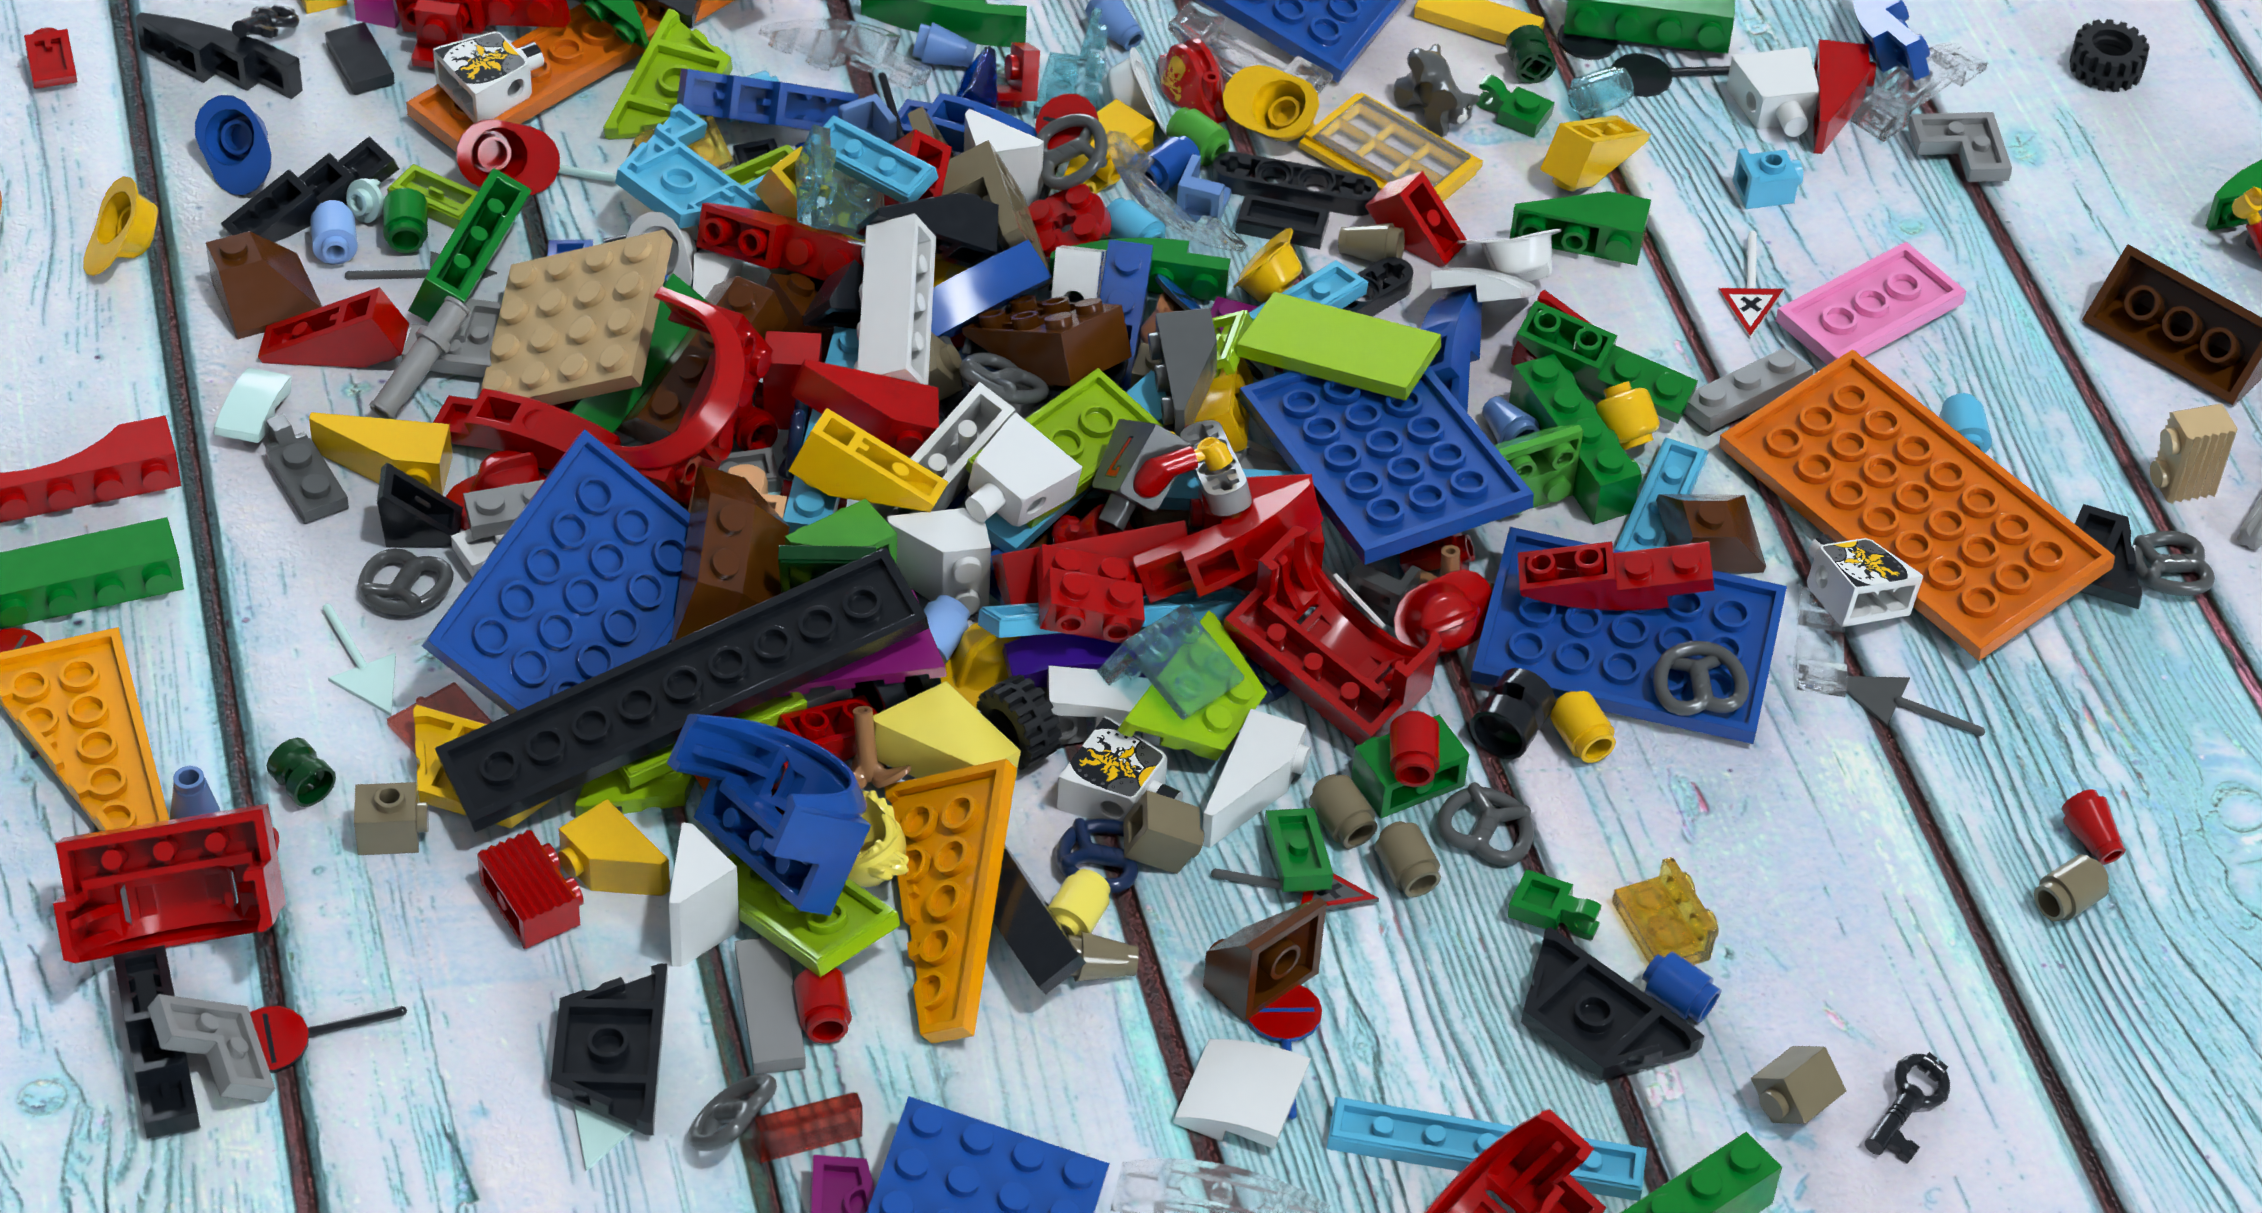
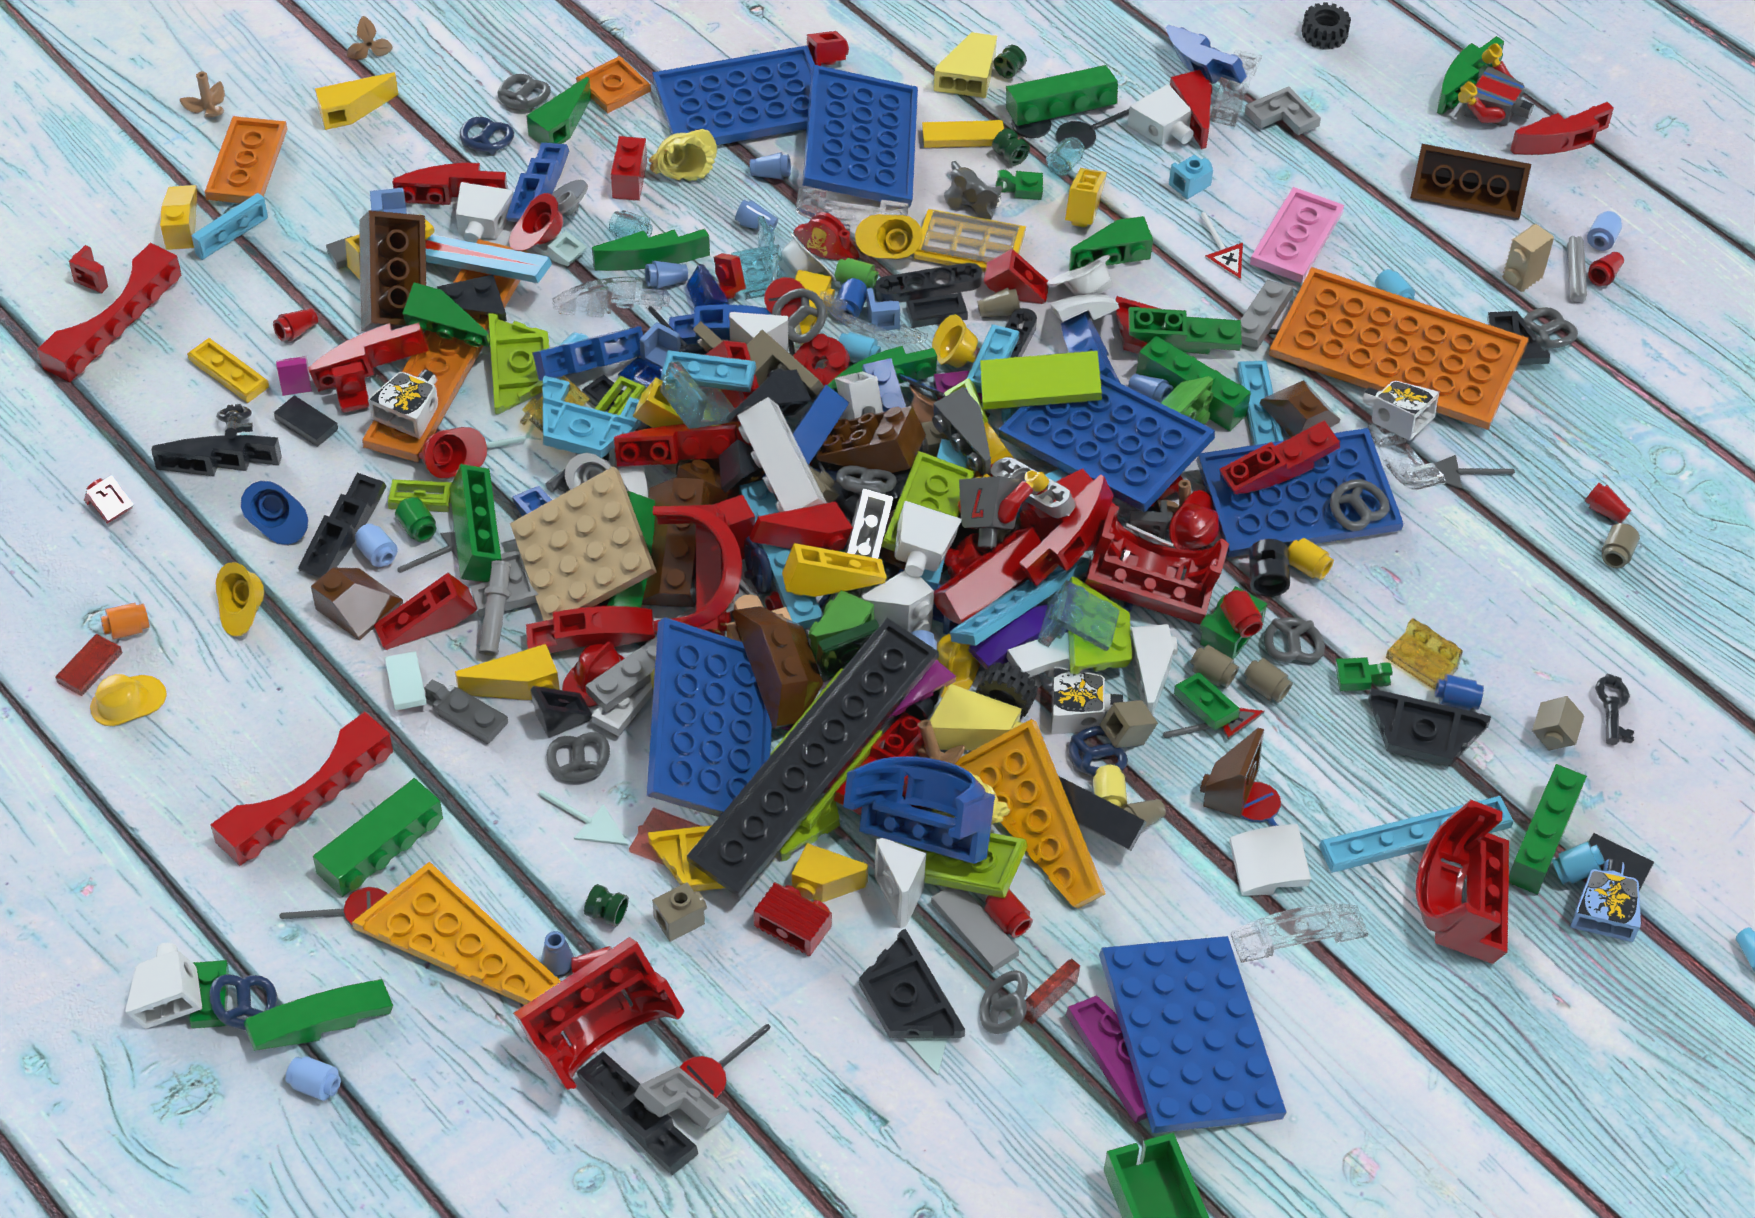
camera: 25 degrees left, 5 degrees up
(365, 199) = (381, 515): light aqua plate -> none
(1088, 594) = (1010, 596): red plate -> none
(1629, 414) = (1216, 355): yellow head -> none

